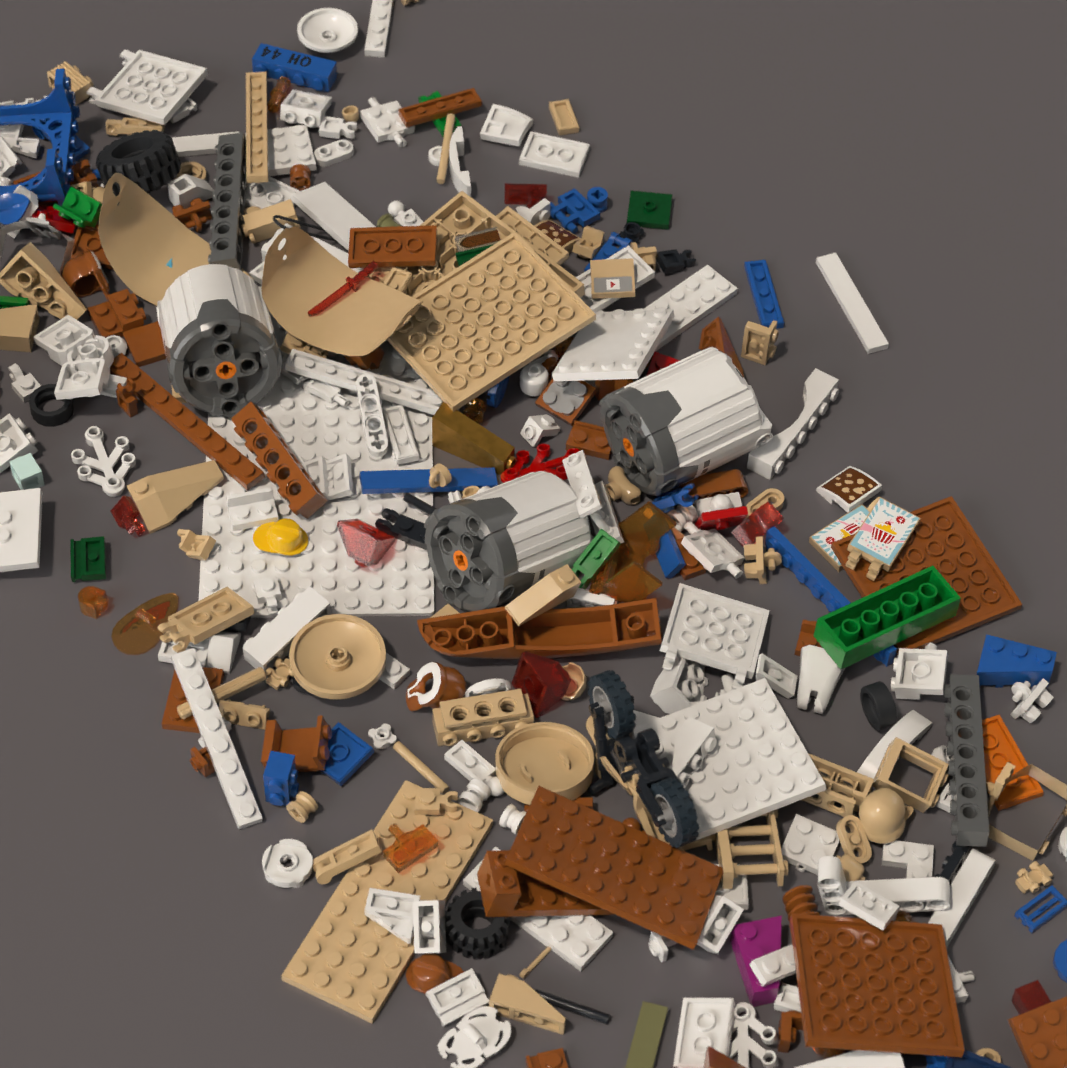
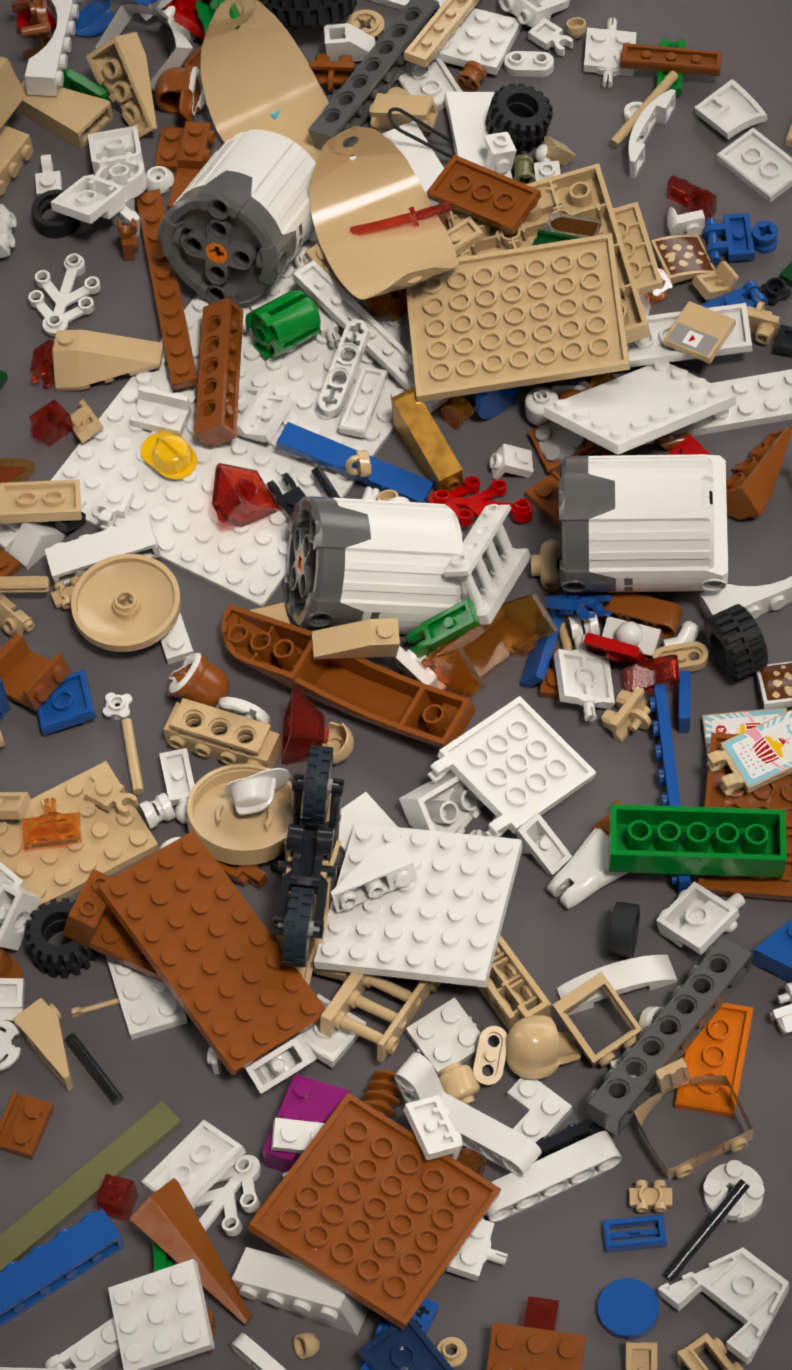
camera: 40 degrees right, 5 degrees up
(169, 557) = (50, 423): none -> clear red brick
(301, 404) = (284, 323): none -> green cylinder
(361, 189) = (520, 113): none -> black tyre
(370, 213) = (500, 153): none -> white bracket
(406, 202) = (558, 151): none -> tan slope
(547, 743) = (256, 791): none -> white piece
(756, 489) = (687, 634): none -> white arm
(792, 532) = (684, 701): none -> blue tile
(801, 474) = (736, 642): none -> black tyre

